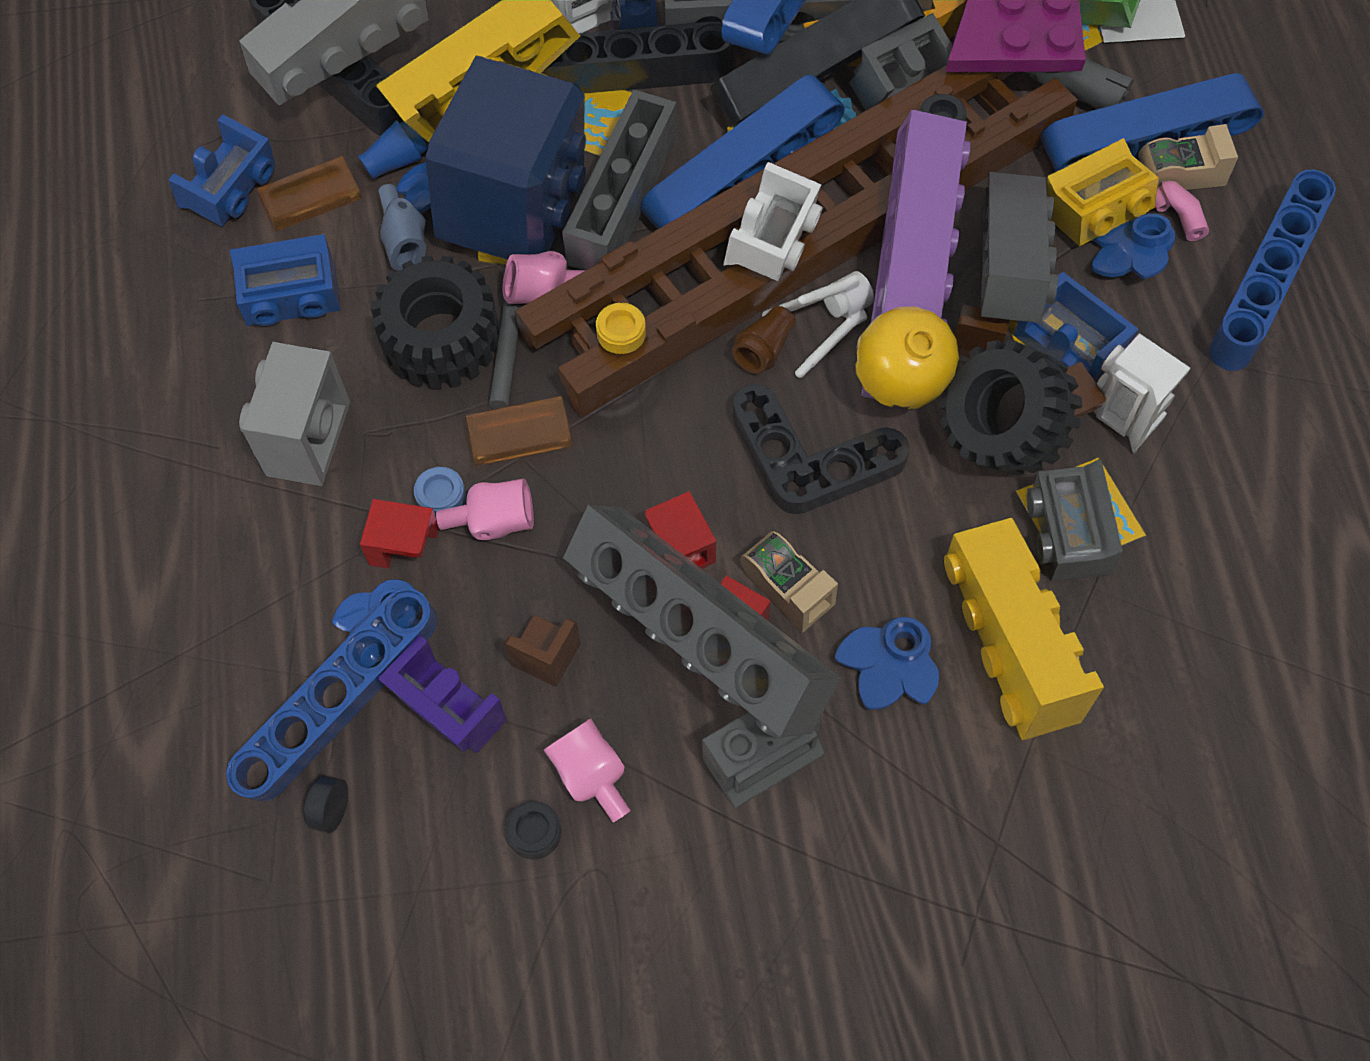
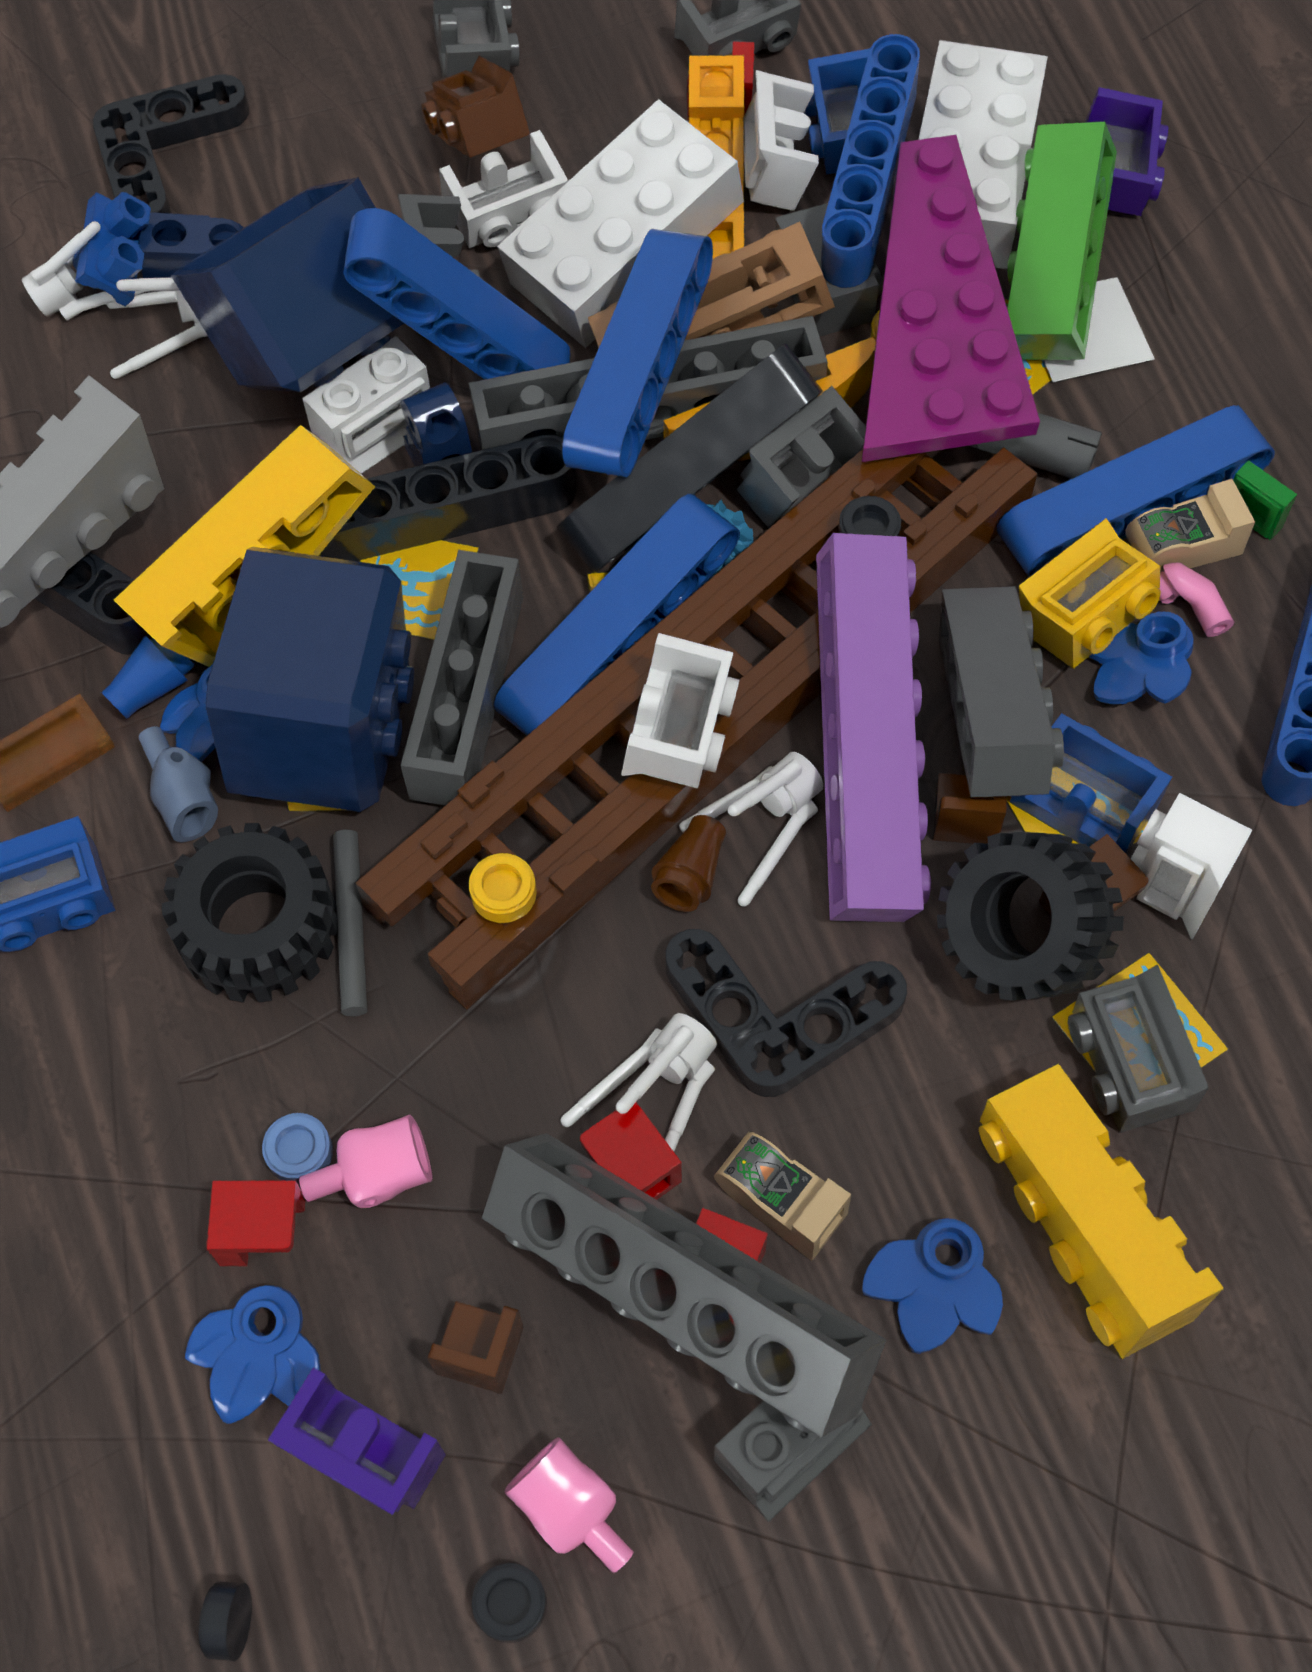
camera: 10 degrees left, 0 degrees up
(295, 413) = (84, 1077): light grey brick -> none
(308, 705) = (182, 1494): blue beam -> none
(518, 430) = (387, 1043): clear orange tile -> none
(534, 275) = (374, 827): bright pink piece -> none
(725, 469) = (674, 1054): none -> white plant
(906, 357) = (885, 869): yellow cylinder -> none
(1250, 145) = (1265, 498): none -> green tile

